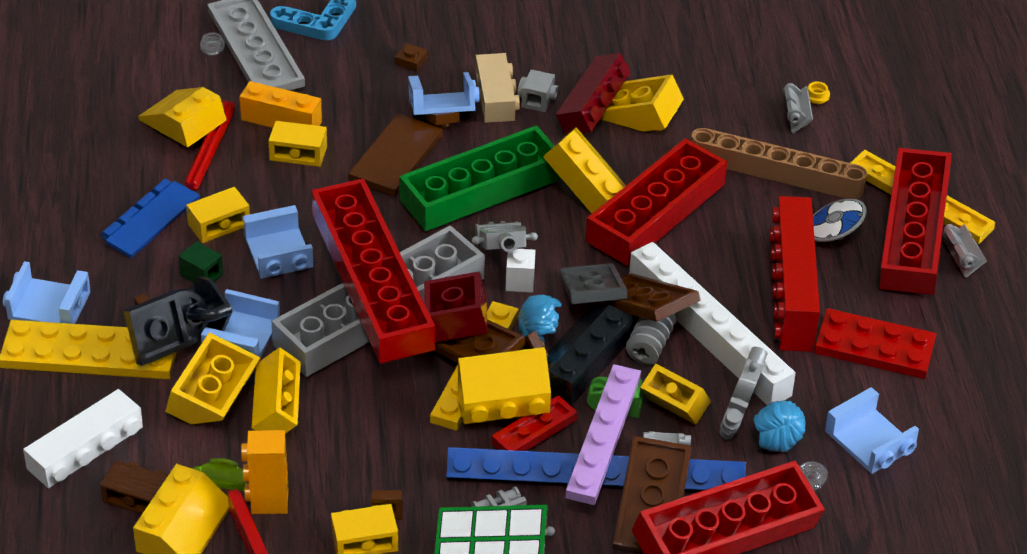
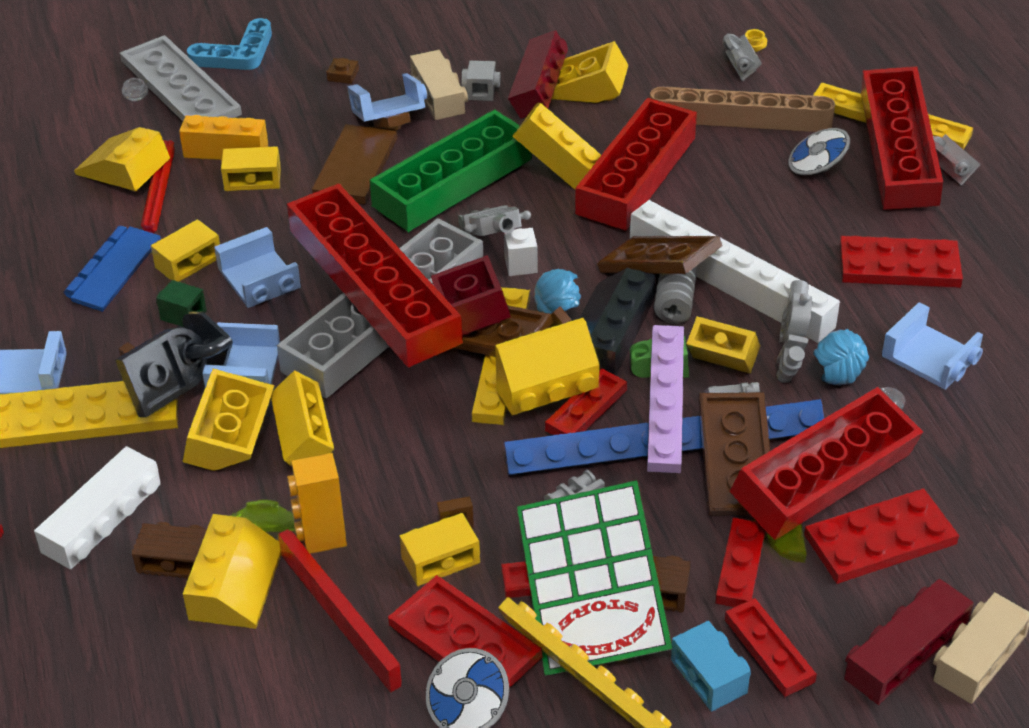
camera: 10 degrees left, 0 degrees up
(593, 283) = (600, 251): dark grey tile -> none
(794, 274) = (802, 207): red brick -> none

